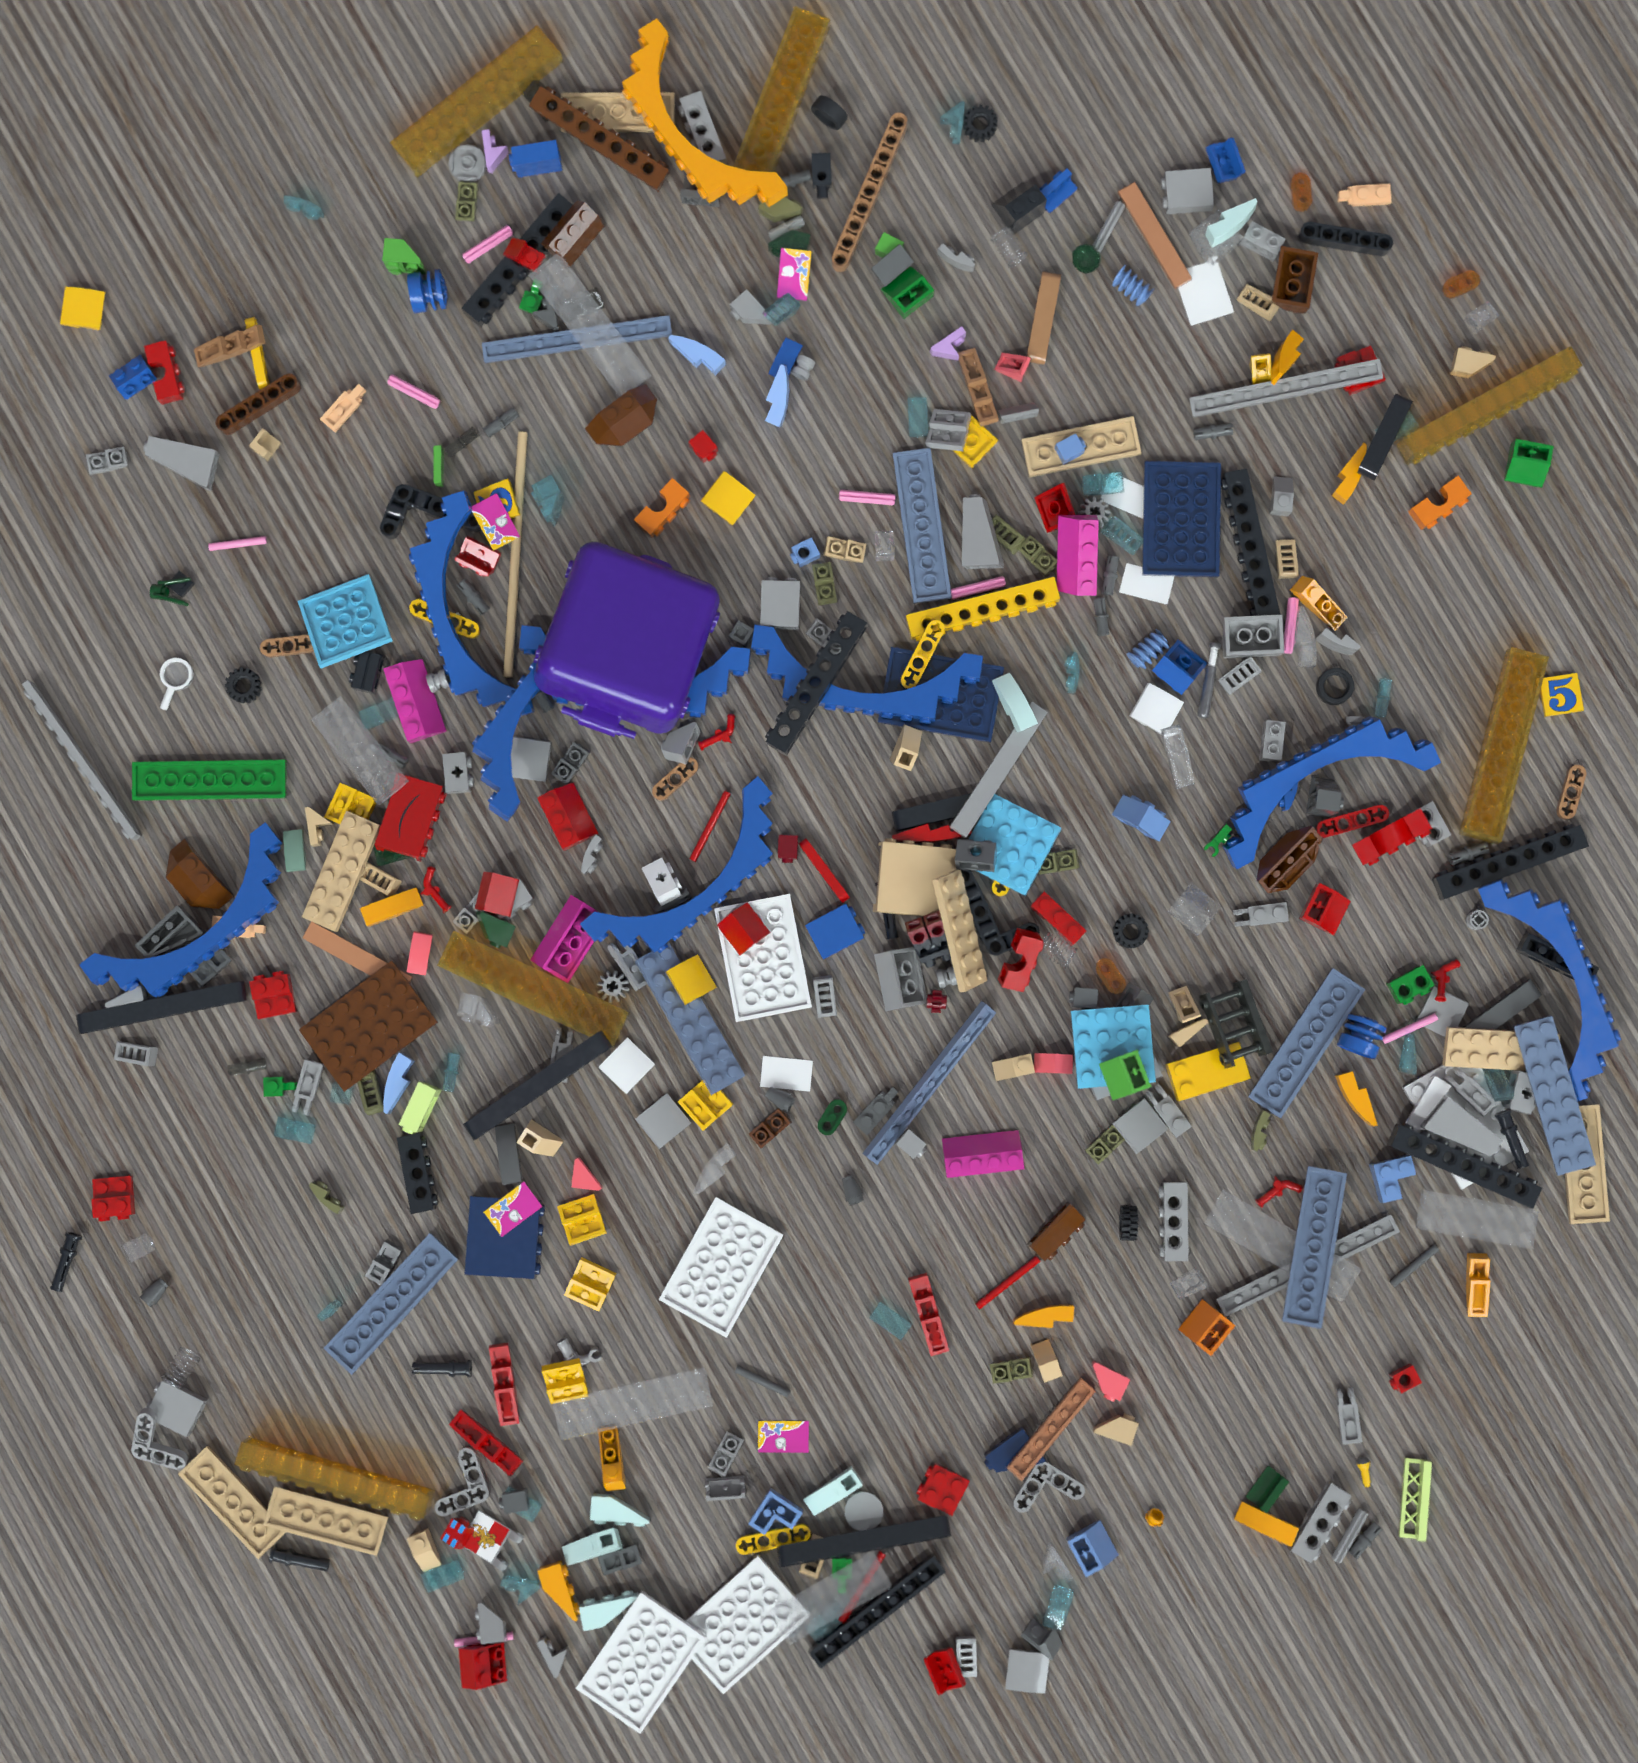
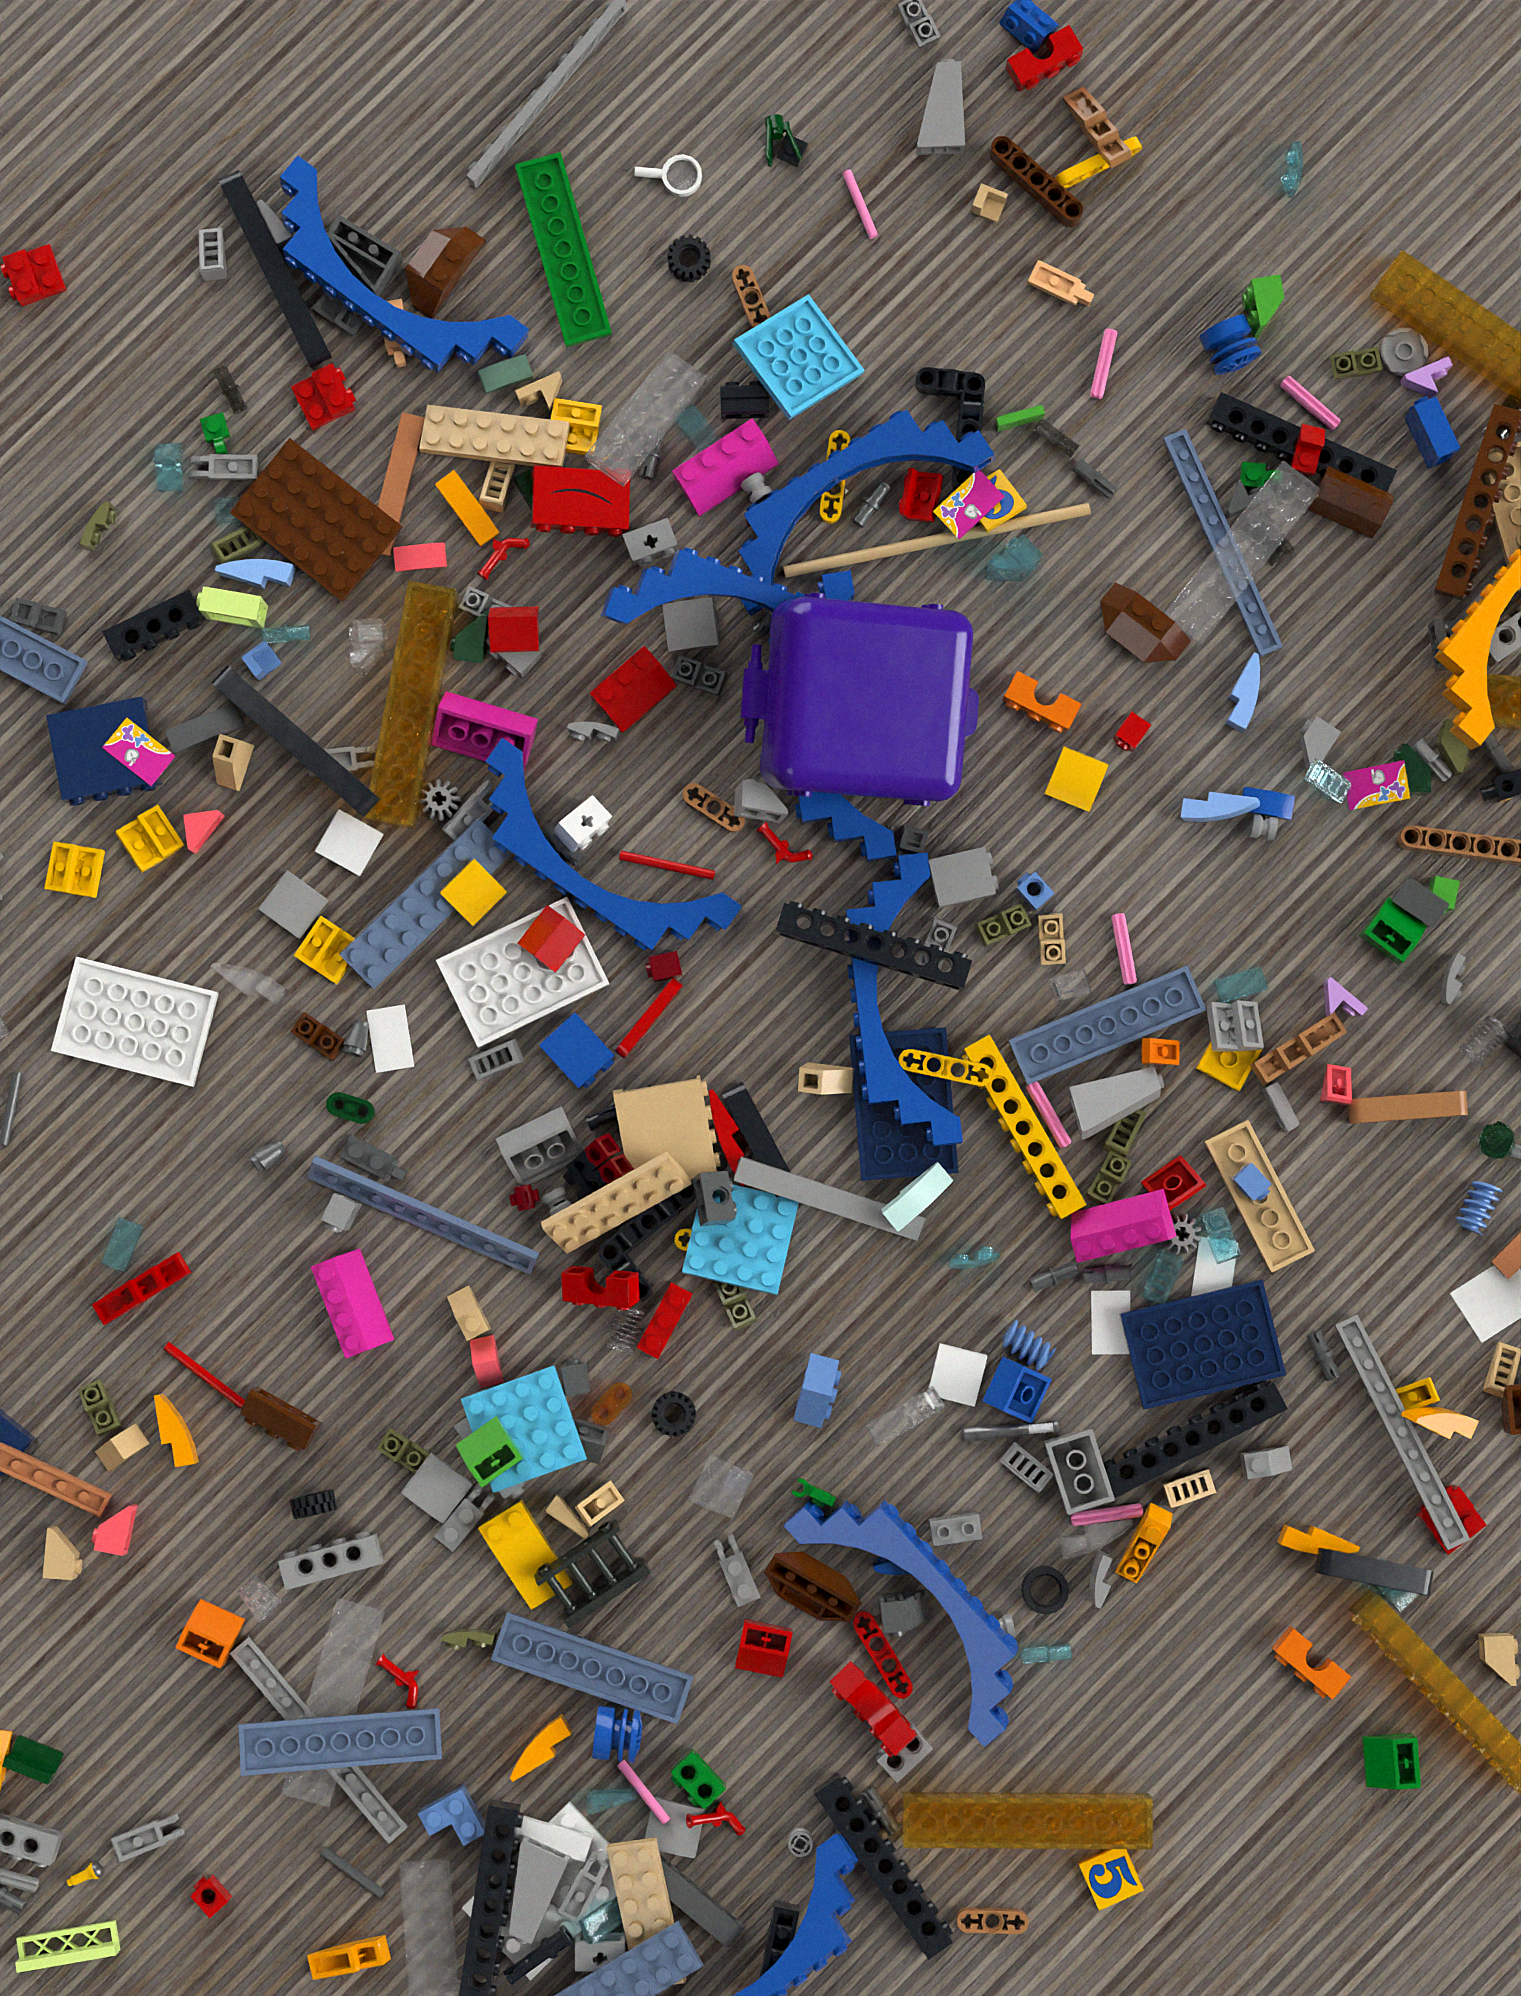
camera: 65 degrees right, 0 degrees up
(466, 1096) = (261, 660): none -> medium blue panel
(952, 491) = (1160, 1051): none -> orange slope

